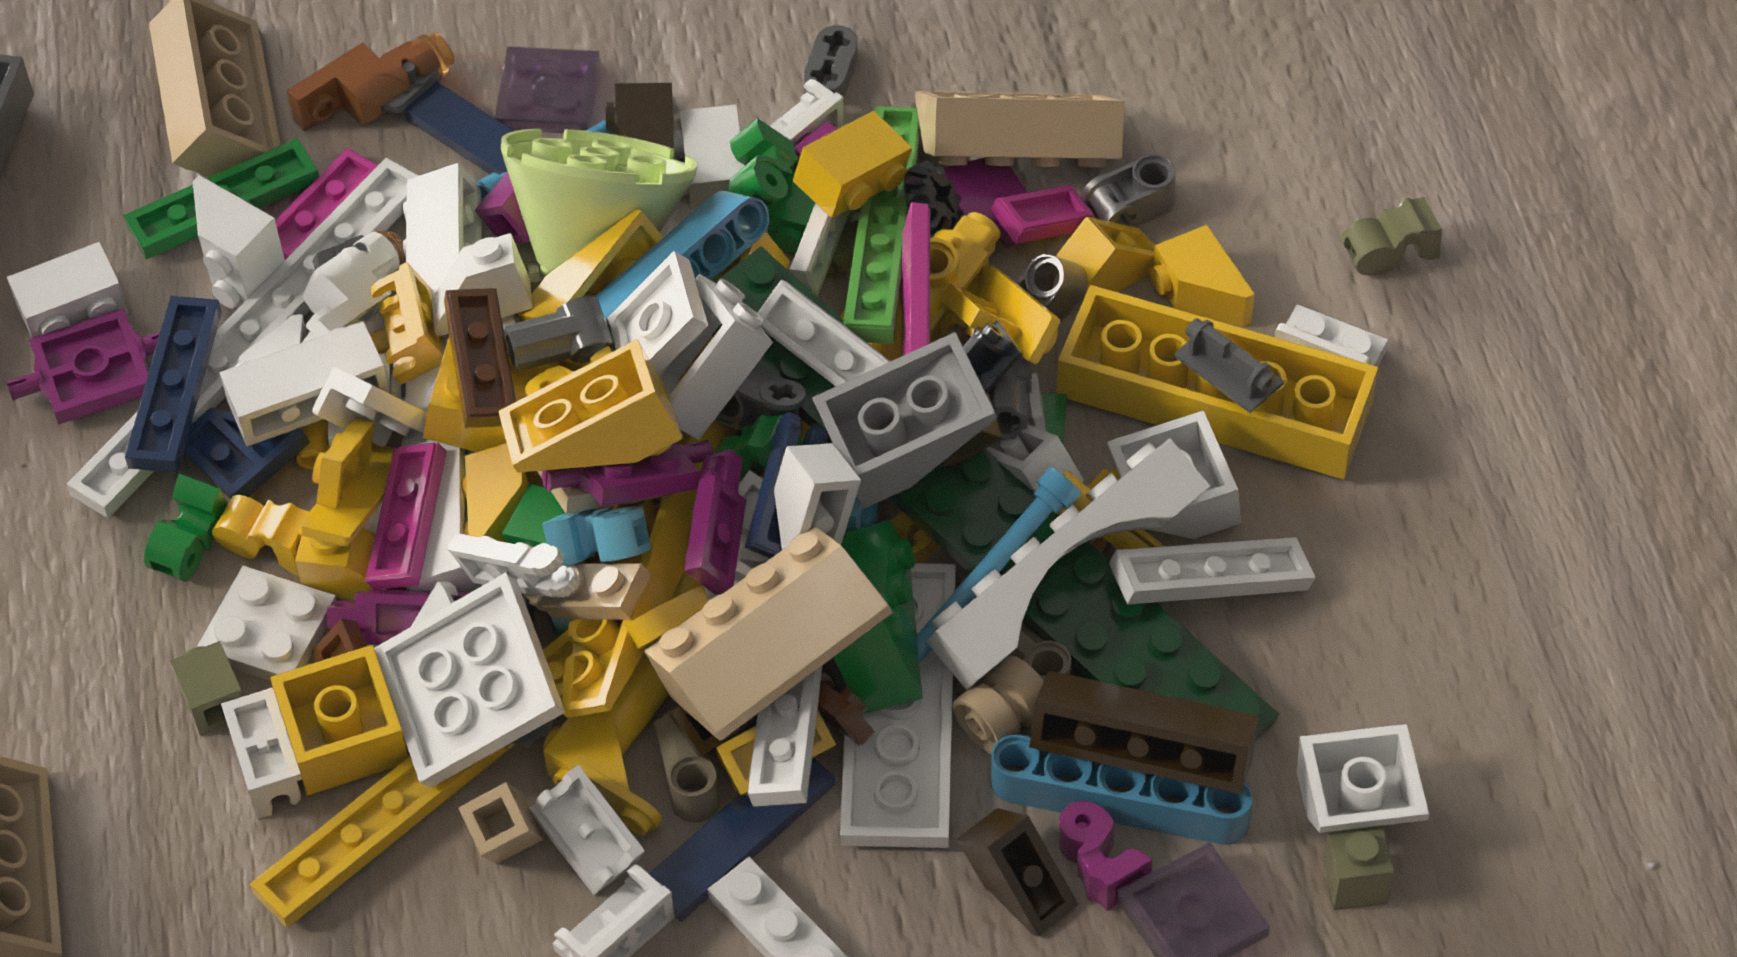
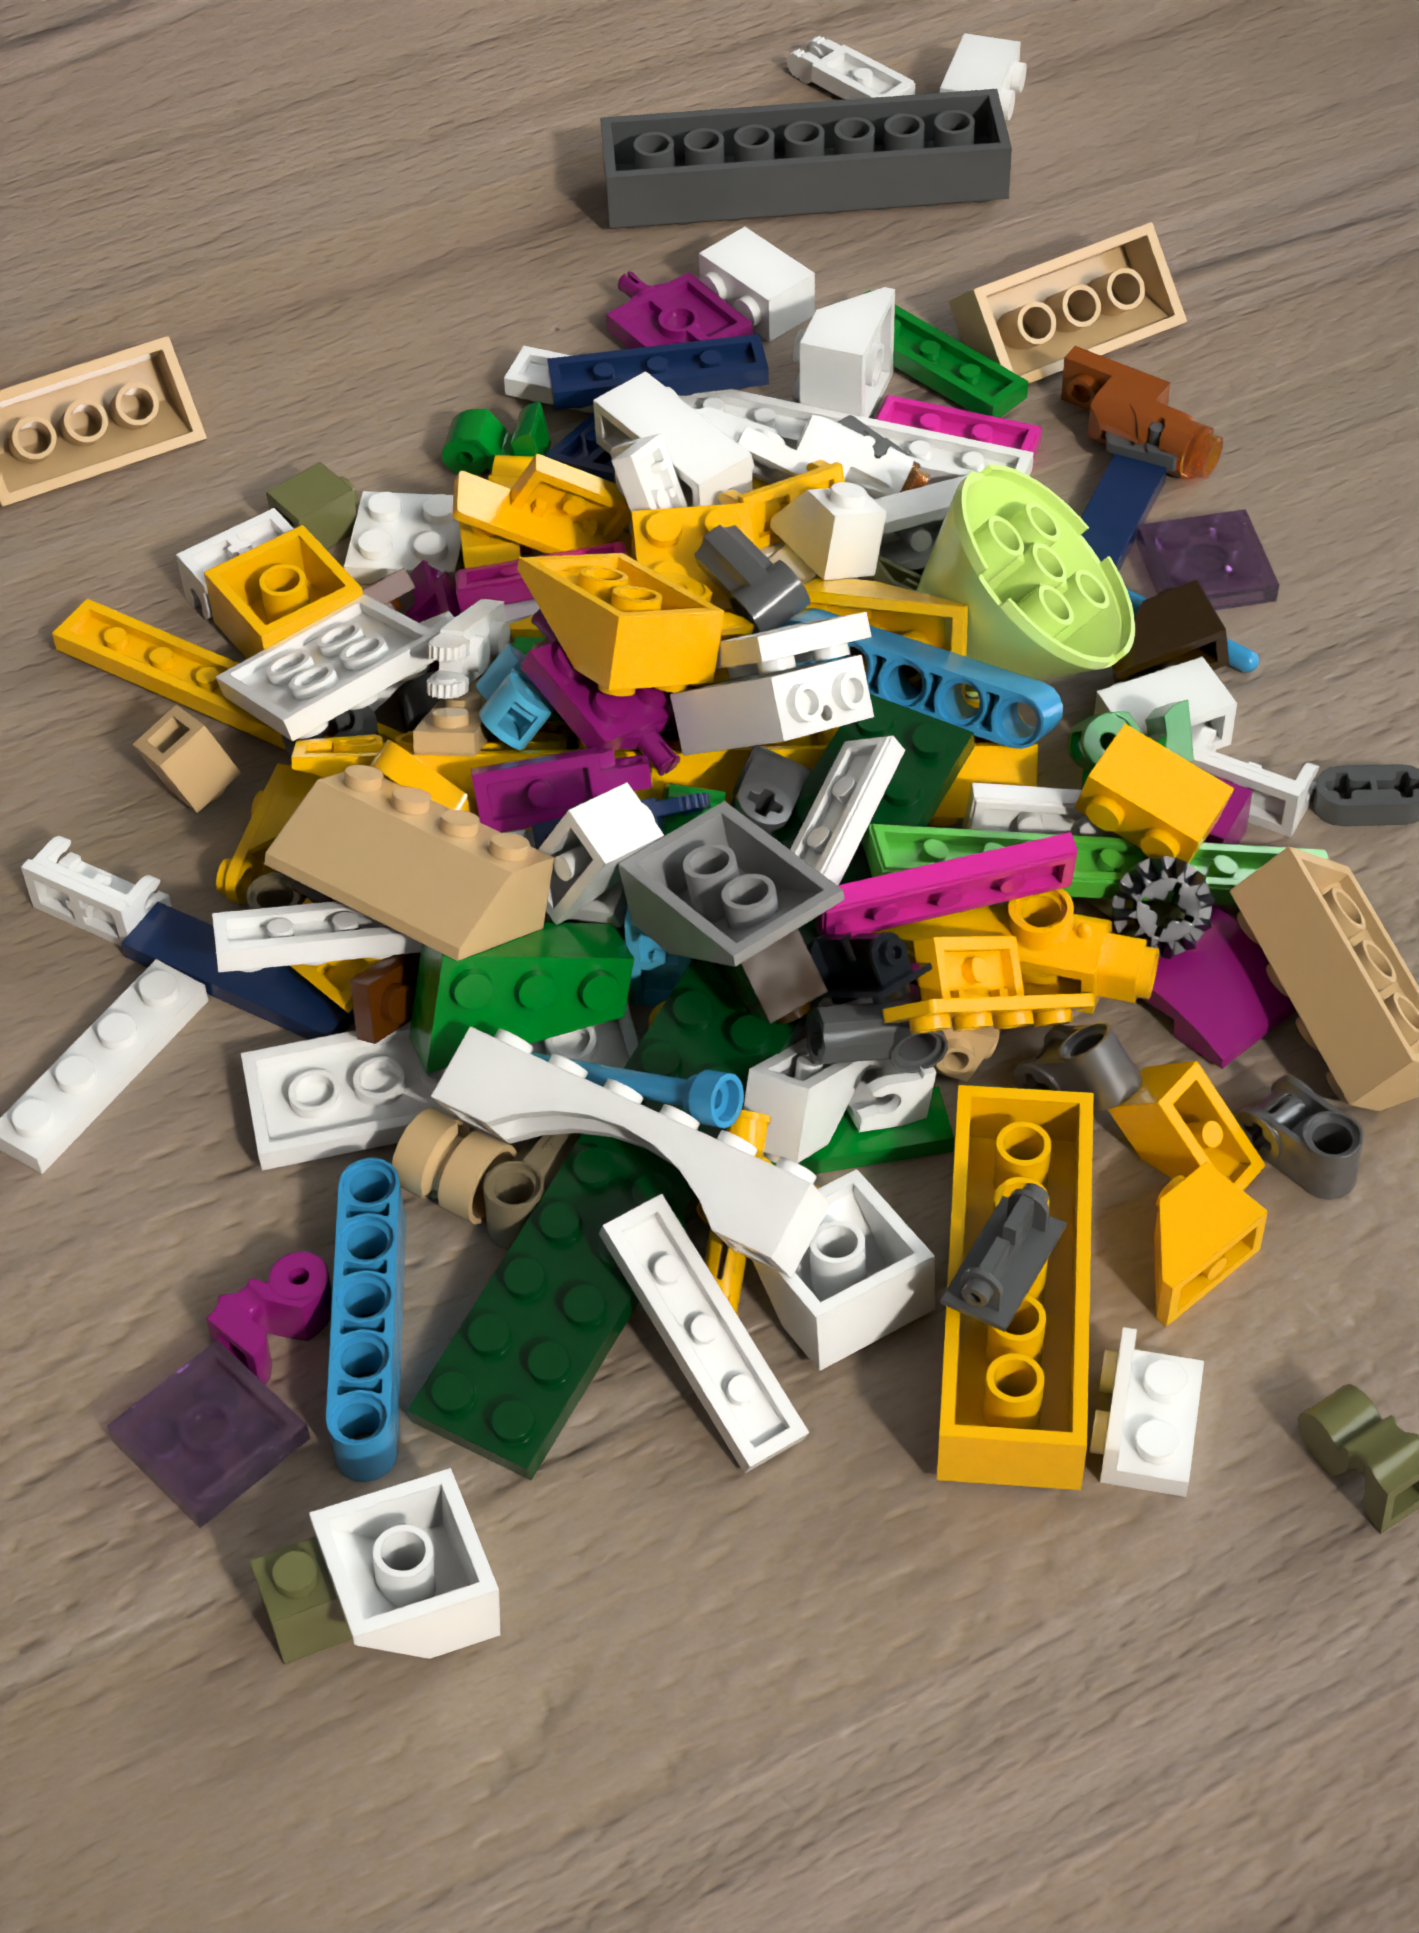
camera: 75 degrees right, 5 degrees down
(479, 355) = (674, 535): reddish brown tile -> none
(586, 830) = (200, 833): white hinge -> none
(1018, 869) = (230, 1232): dark brown slope -> none
(1041, 213) = (1223, 1045): dark pink tile -> none
(1144, 731) = (417, 1298): dark brown brick -> none

